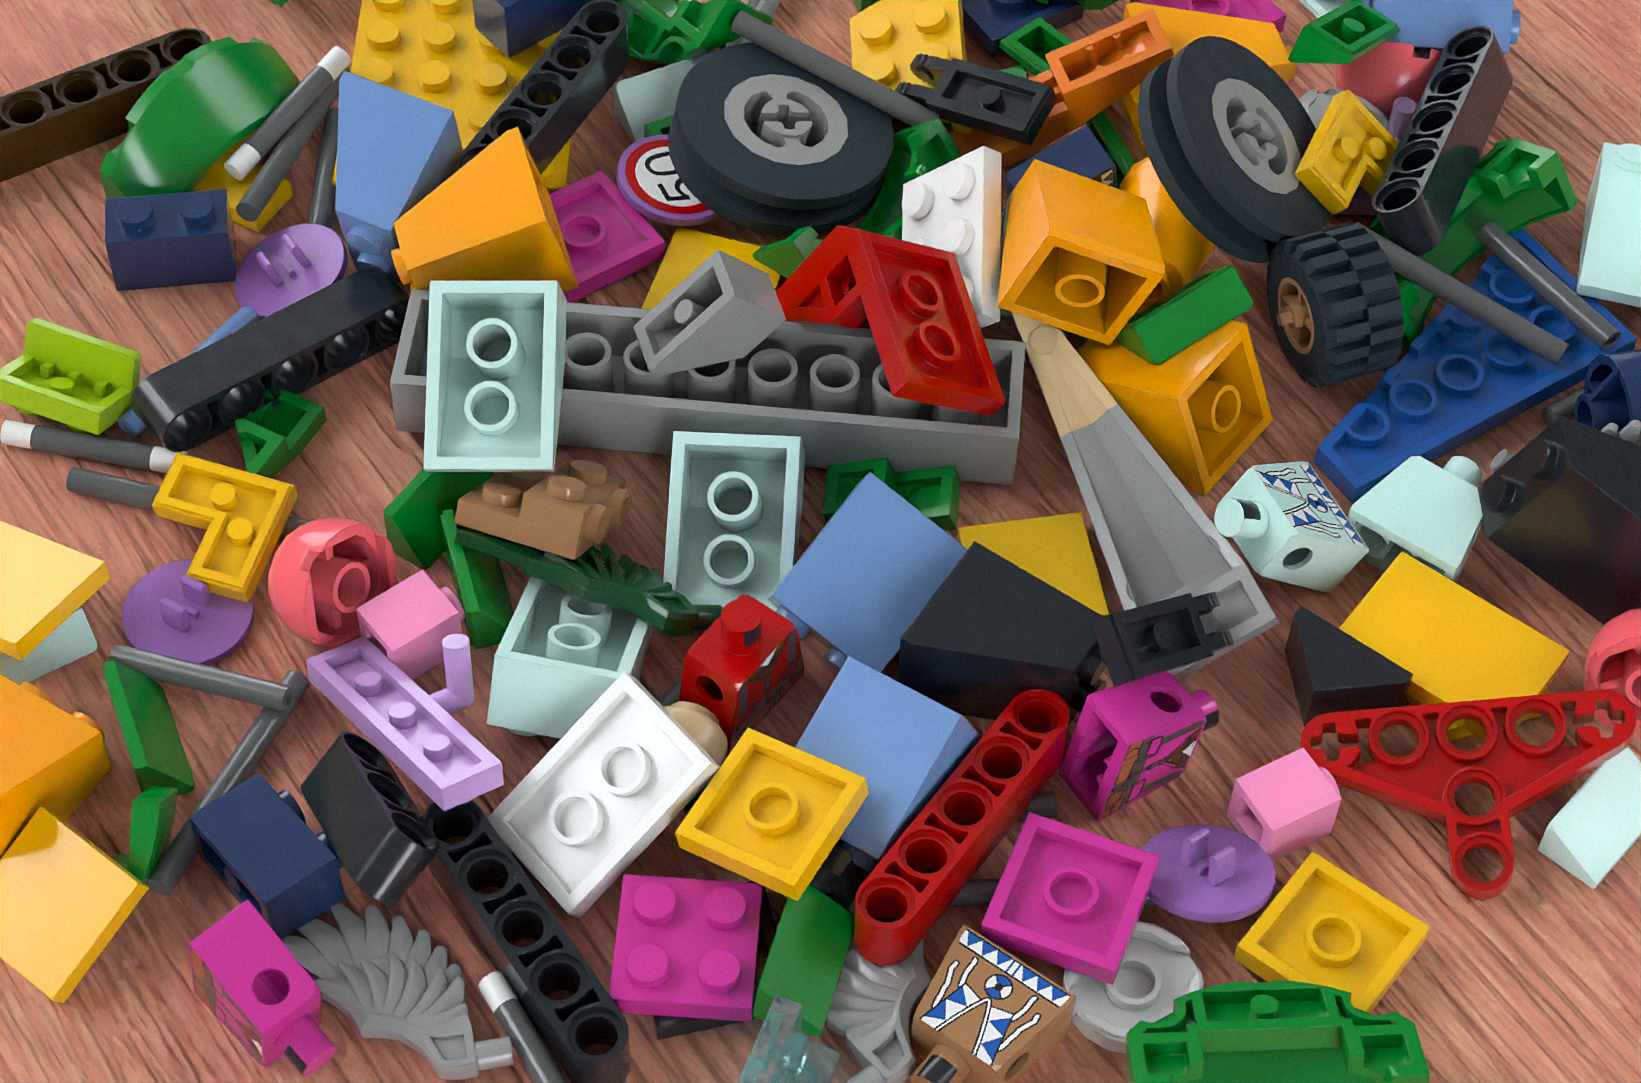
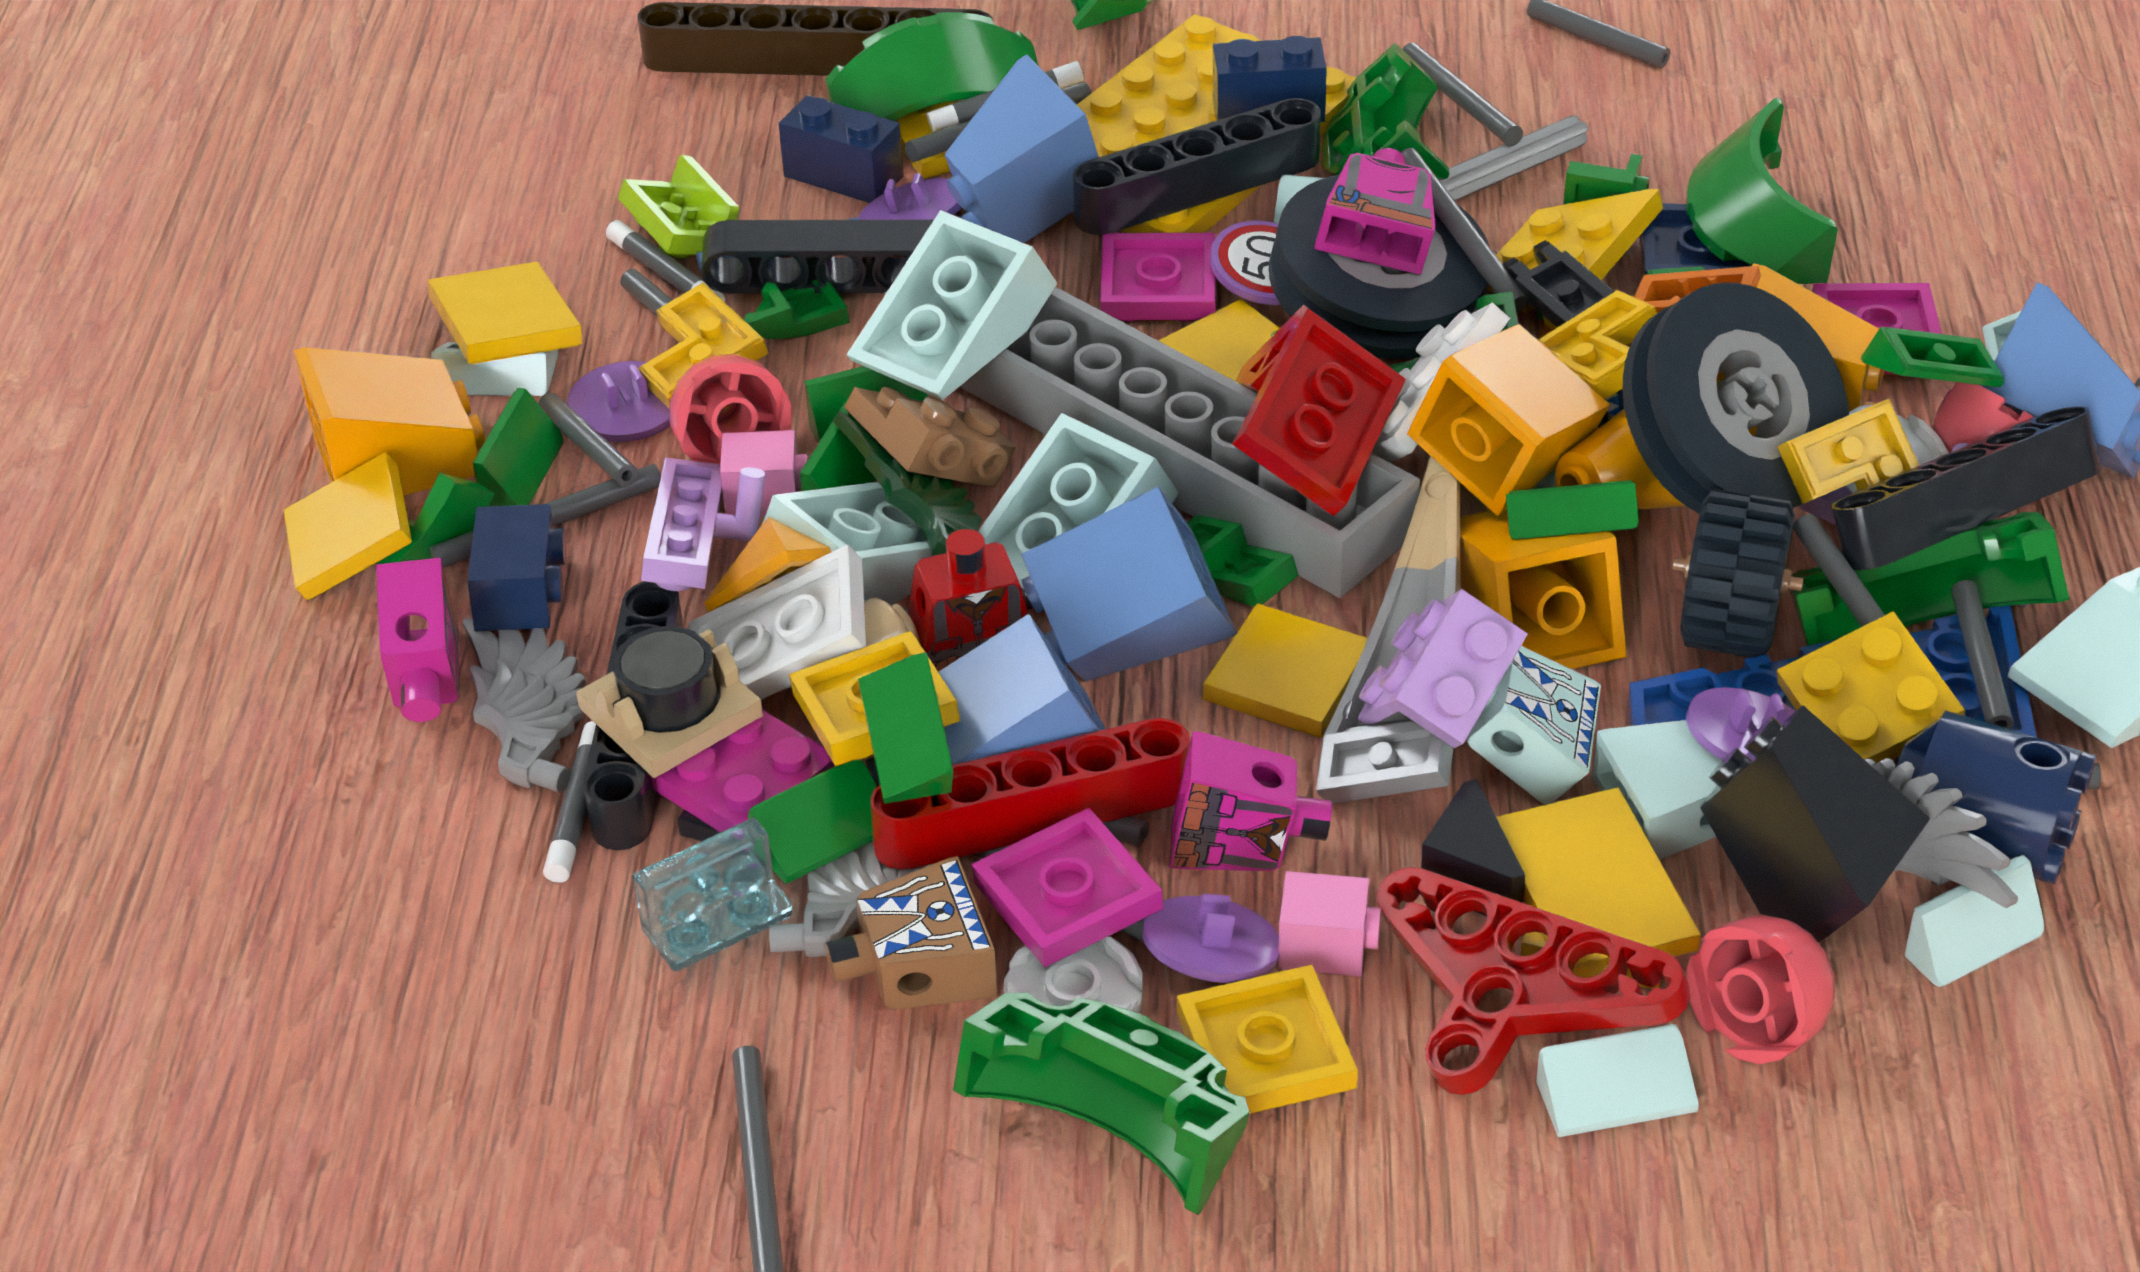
camera: 40 degrees right, 10 degrees down
(369, 818) = (595, 570): black beam -> none
(485, 224) = (1076, 215): light orange slope -> none
(532, 720) = (767, 556): none -> light orange slope
(583, 920) = (665, 697): none -> piece
(710, 317) = (1162, 341): light grey slope -> none
(776, 90) = (1380, 212): none -> dark pink torso
(859, 832) = (906, 730): none -> green slope
(997, 635) = (1173, 662): black slope -> none
(1068, 138) = (1597, 340): none -> yellow tile
(1158, 637) = (1301, 722): black hinge -> none
(1211, 522) = (1443, 667): none -> lavender bracket
(1454, 443) = (1730, 716): none -> medium lavender piece
(1514, 366) = (1870, 688): none -> yellow plate

